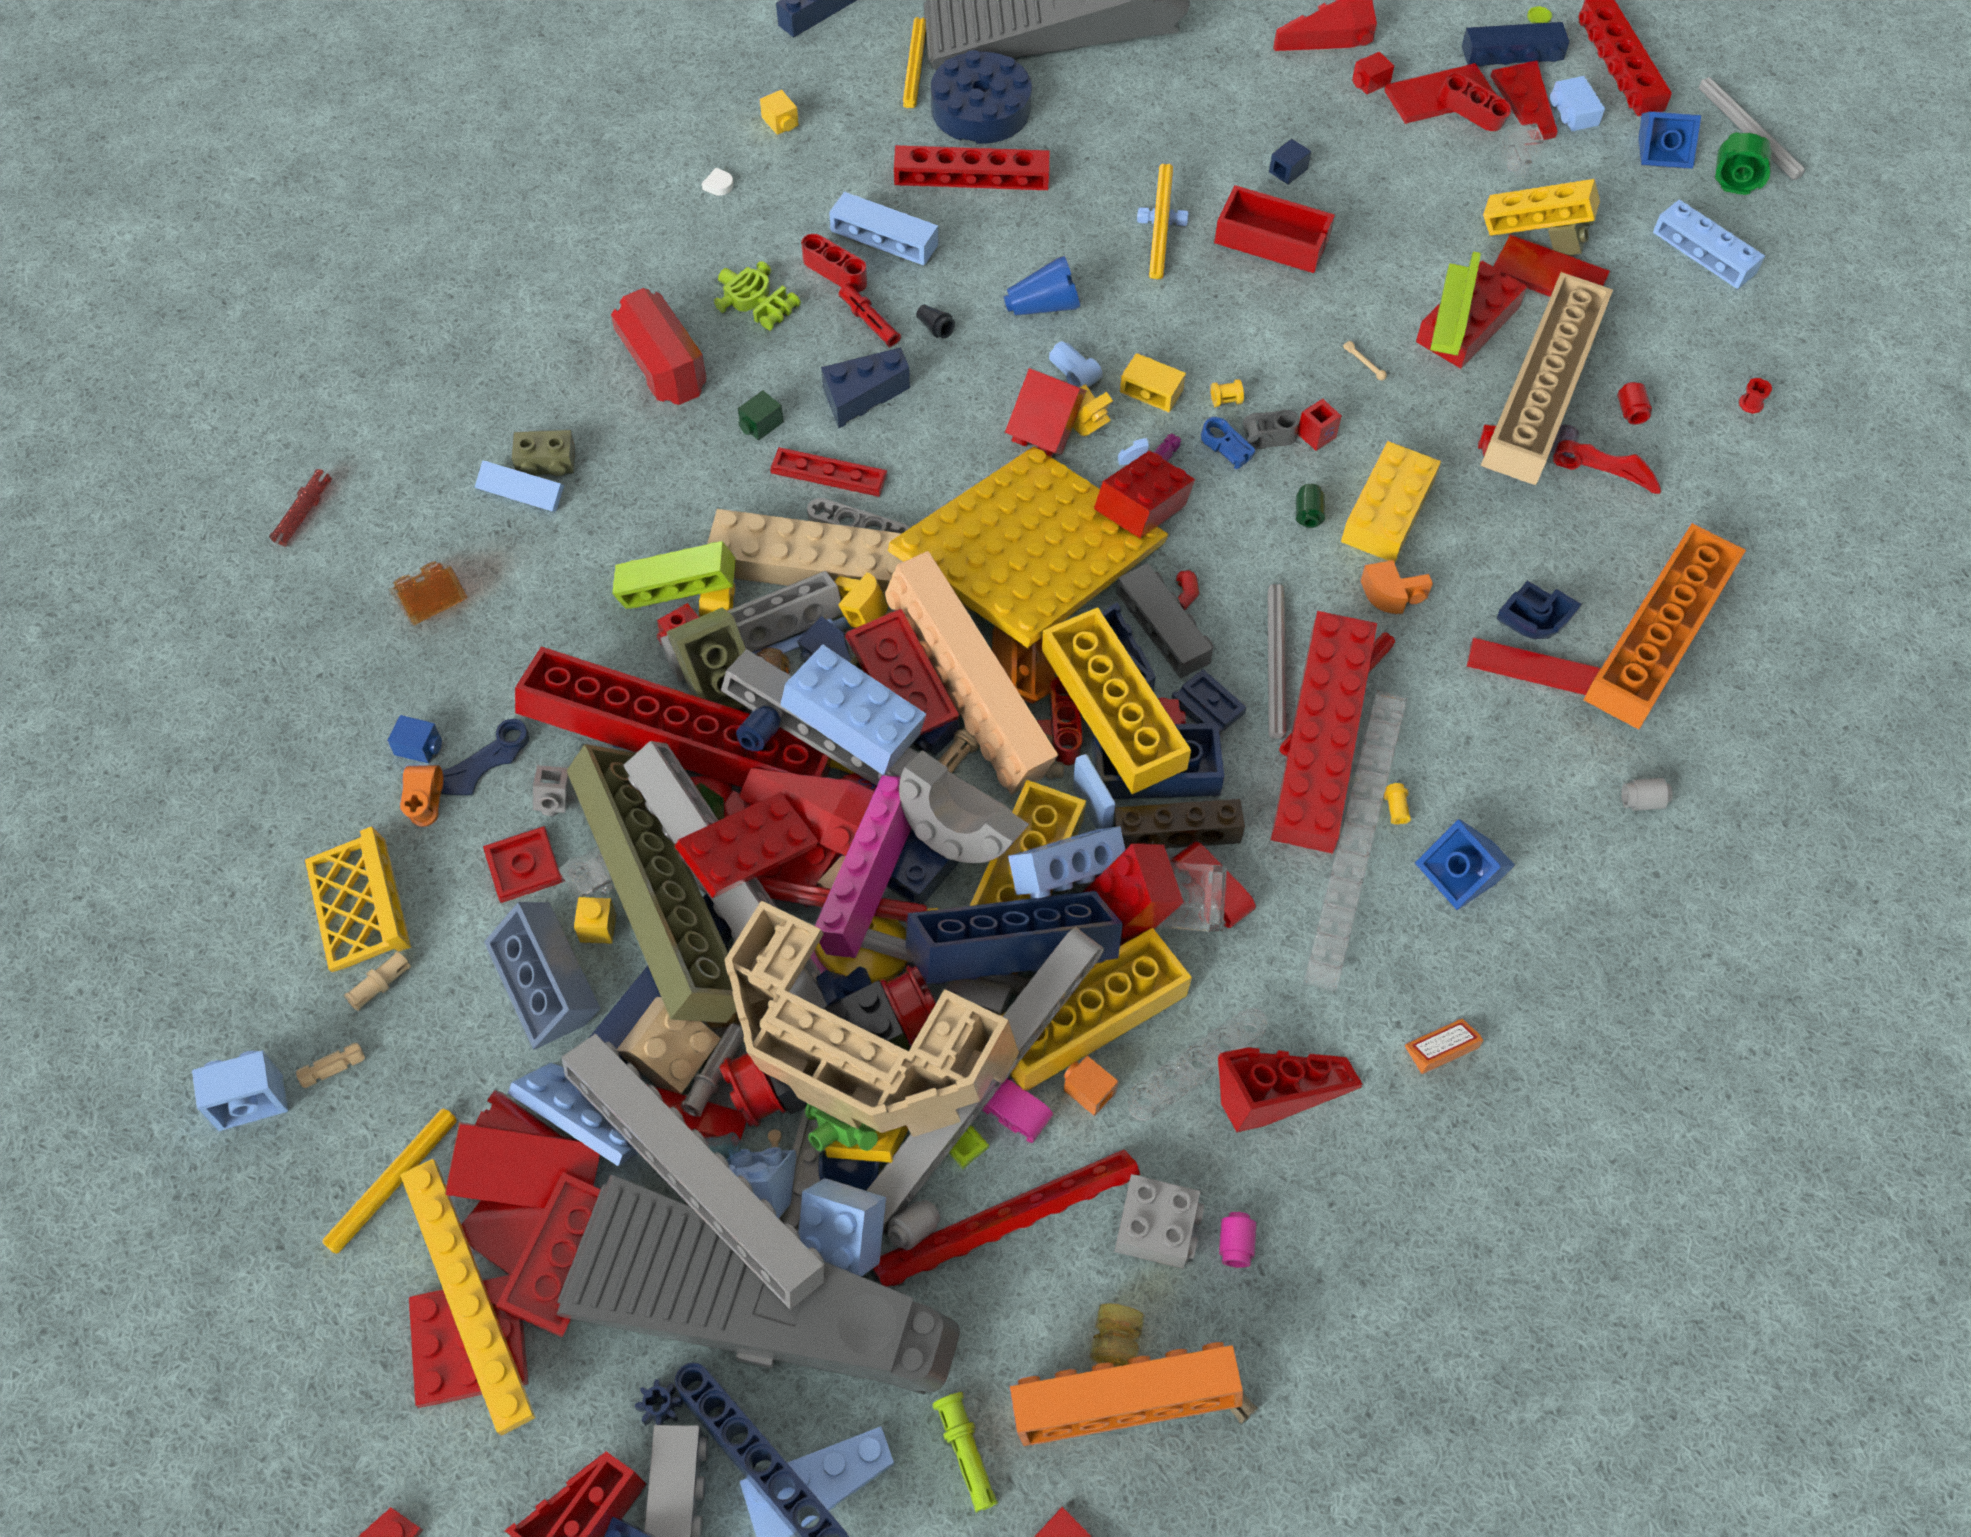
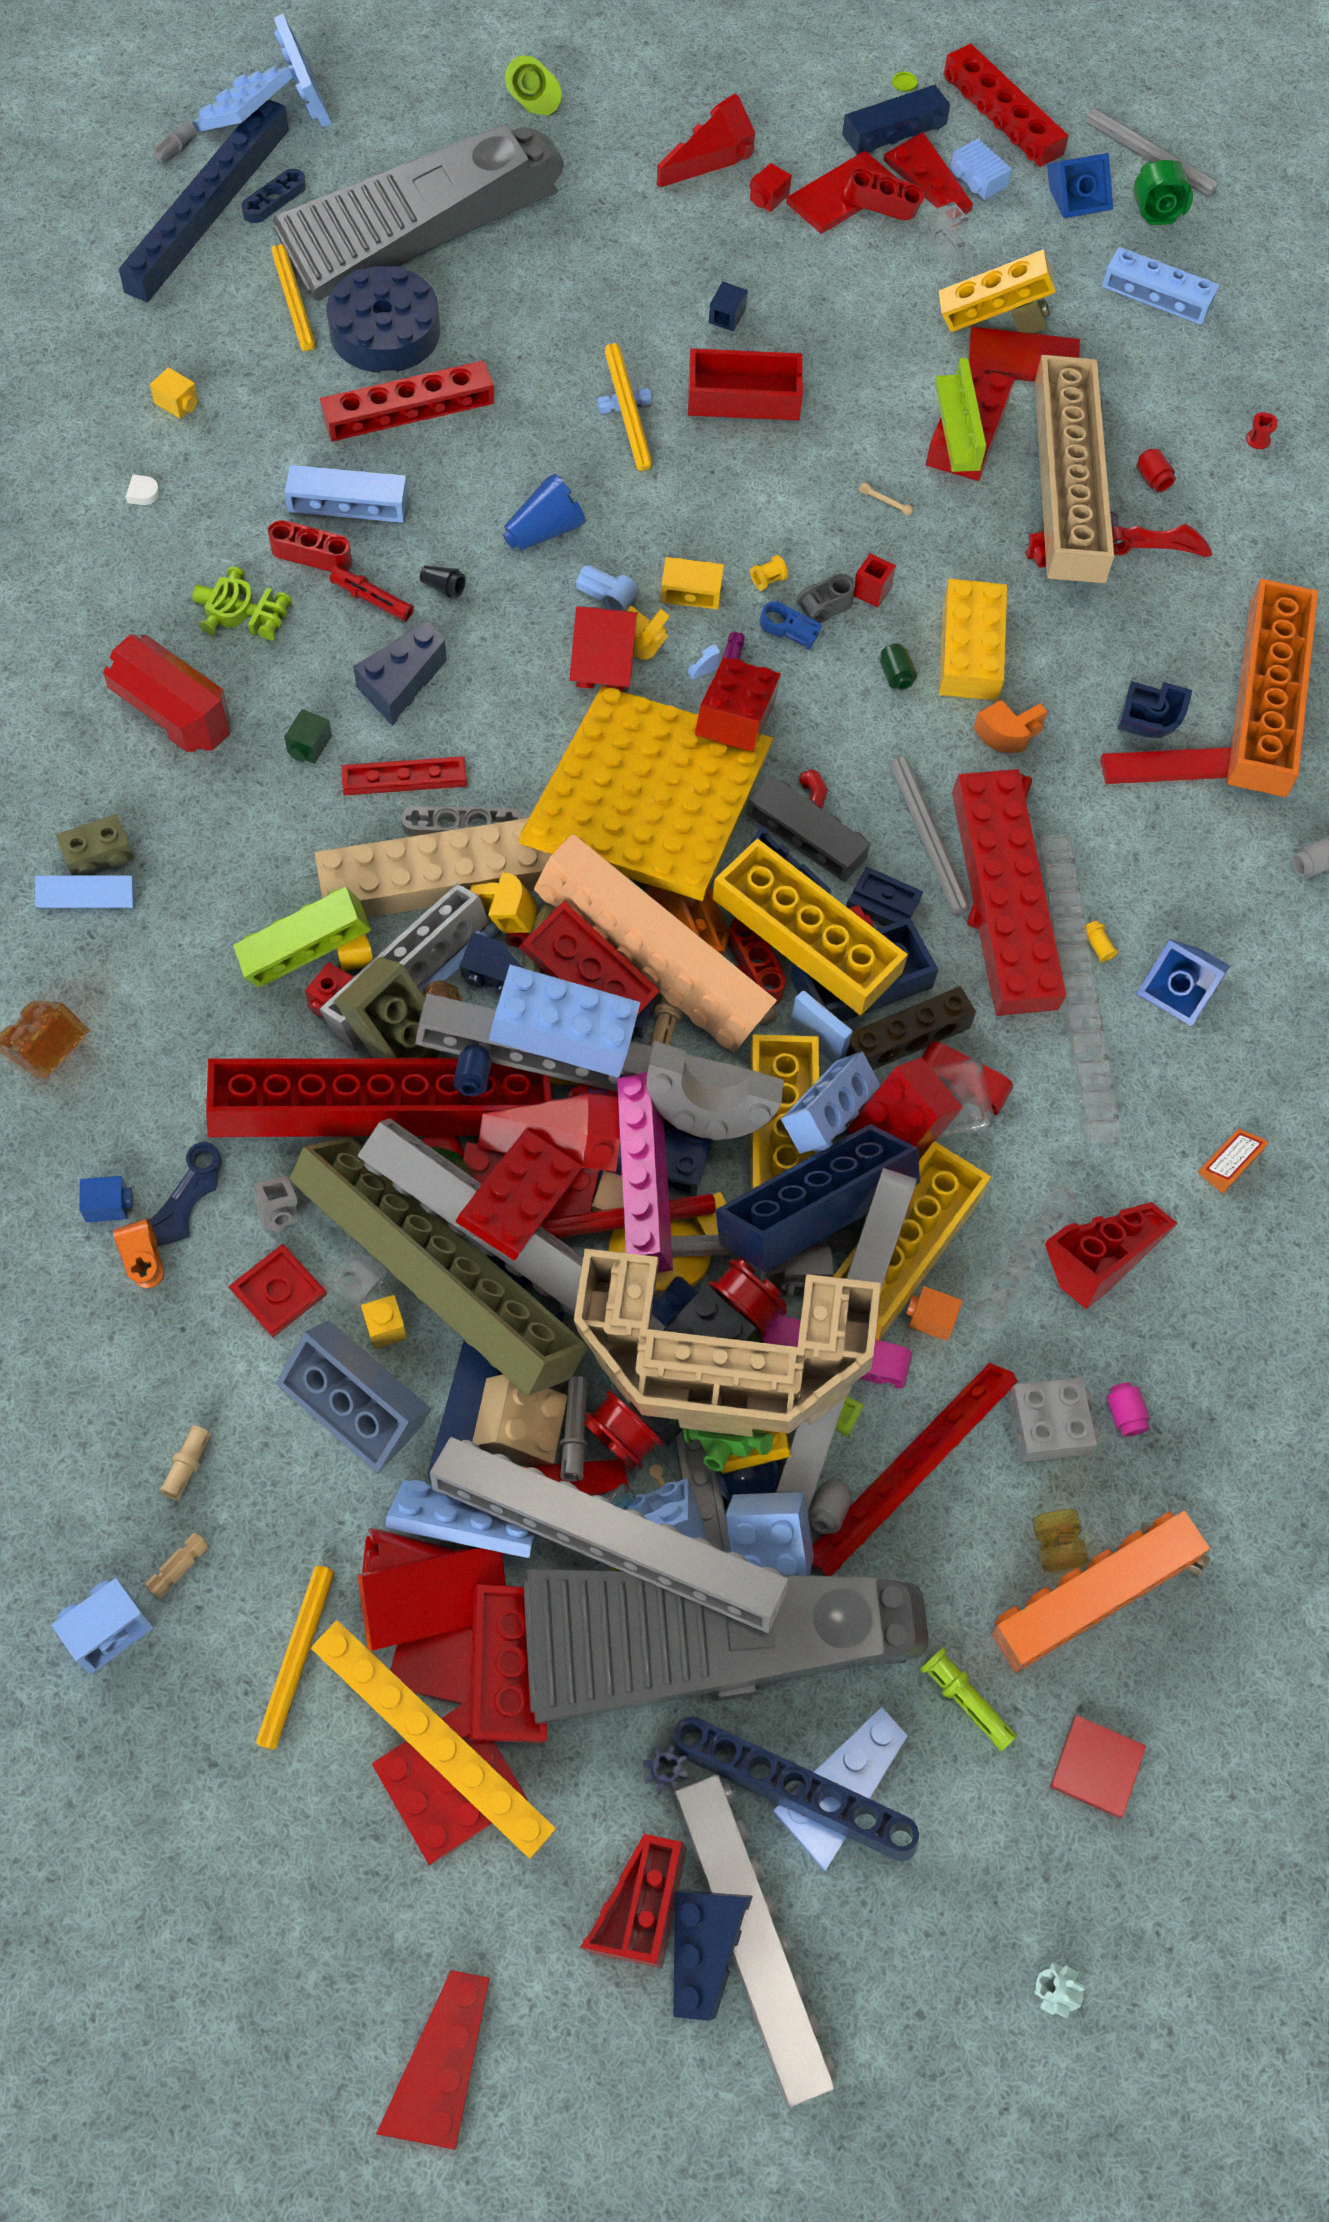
camera: 25 degrees left, 5 degrees up
(384, 893) = (139, 1362): yellow fence -> none

